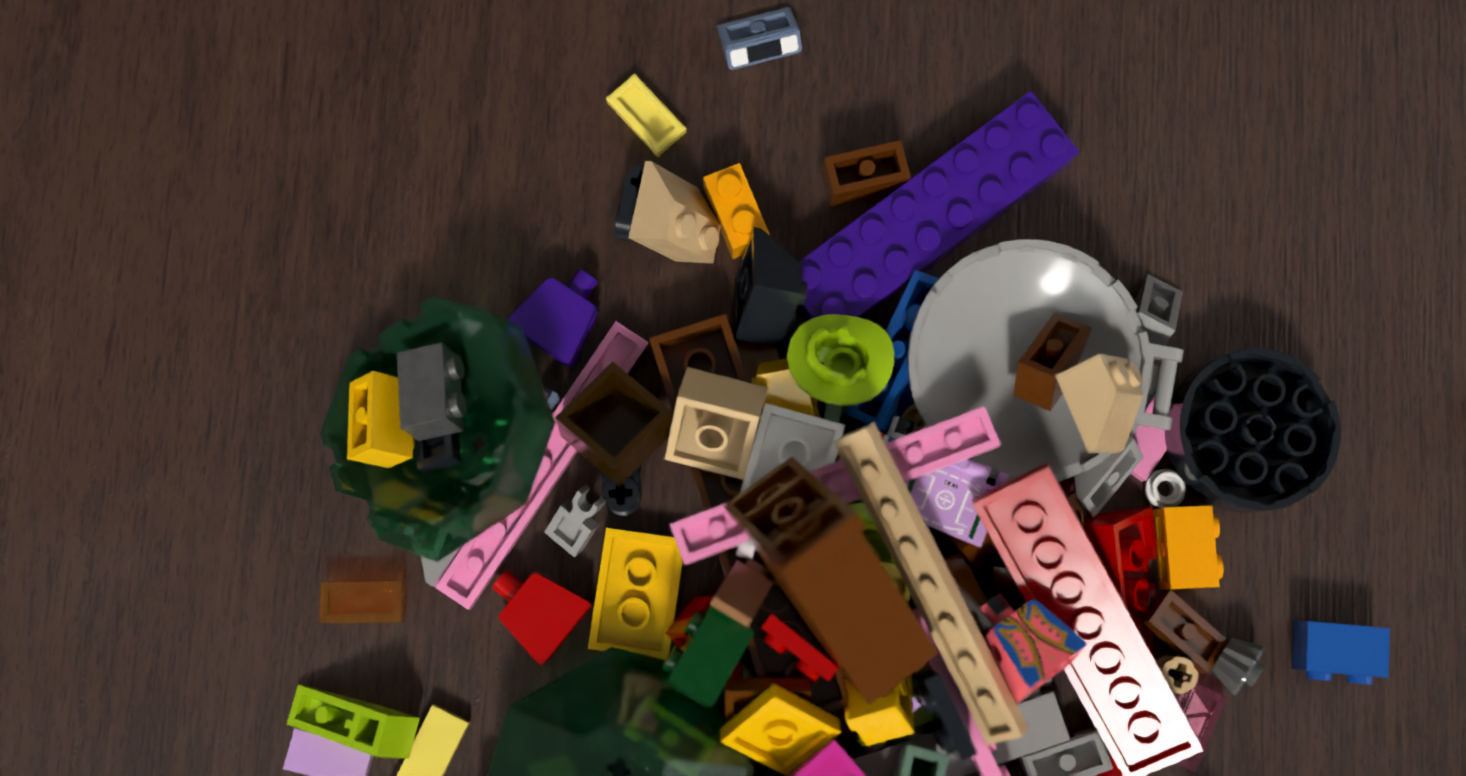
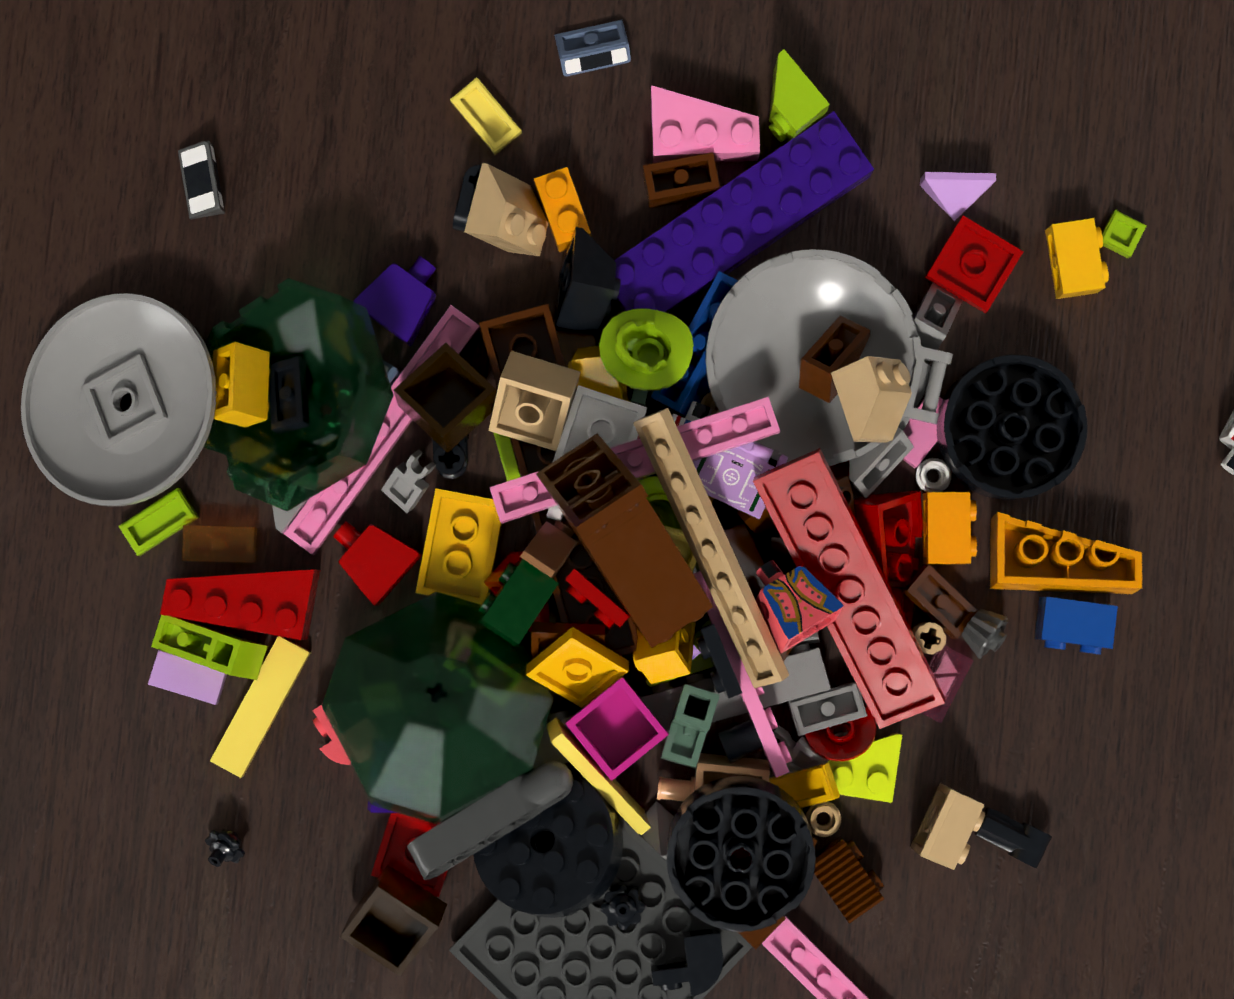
camera: 10 degrees right, 5 degrees up
(197, 432) = (76, 393): none -> light grey dish
(292, 579) = (158, 521): none -> lime tile
(334, 197) = (201, 180): none -> slope
(407, 668) = (253, 602): none -> red wedge
(430, 391) = (285, 362): flat silver brick -> none
(686, 488) = (507, 457): none -> lime tile
(876, 114) = (696, 127): none -> bright pink wedge
(984, 80) = (794, 100): none -> lime slope
(1166, 173) = (956, 191): none -> lavender slope
(1193, 253) = (974, 264): none -> red plate
(1305, 241) = (1076, 258): none -> yellow brick
(1306, 578) = (1046, 559): none -> light orange wedge
(1350, 213) = (1122, 233): none -> lime tile

